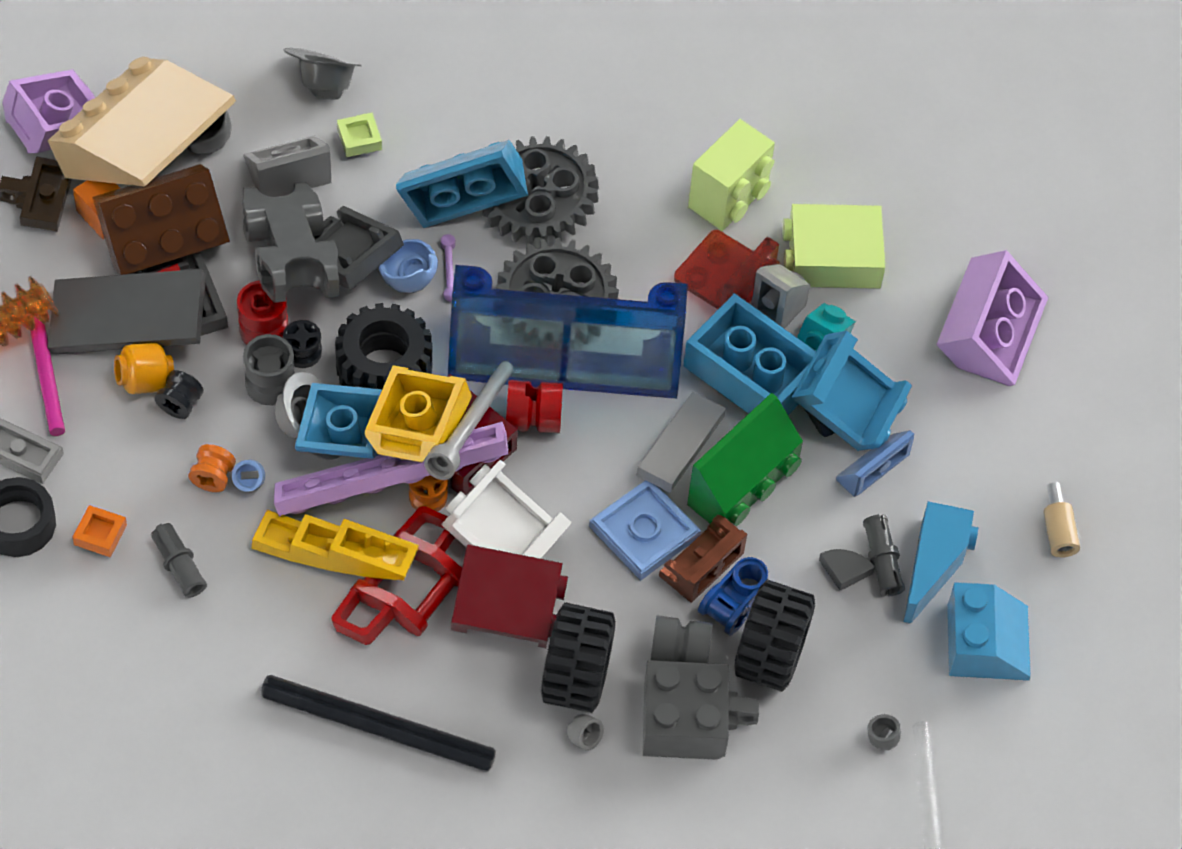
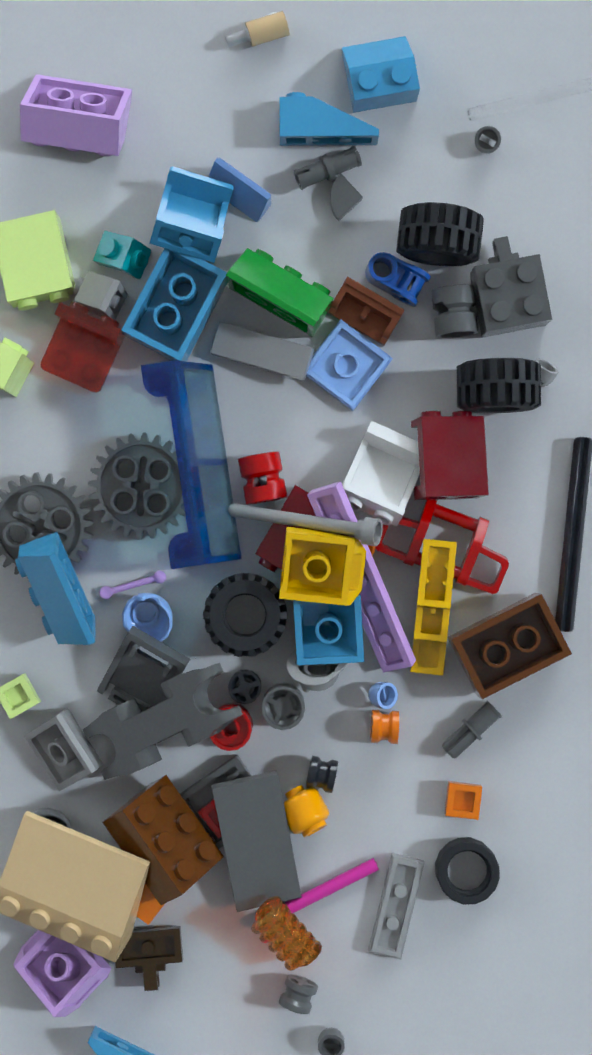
camera: 100 degrees left, 30 degrees up
(266, 609) = (509, 645): none -> reddish brown brick

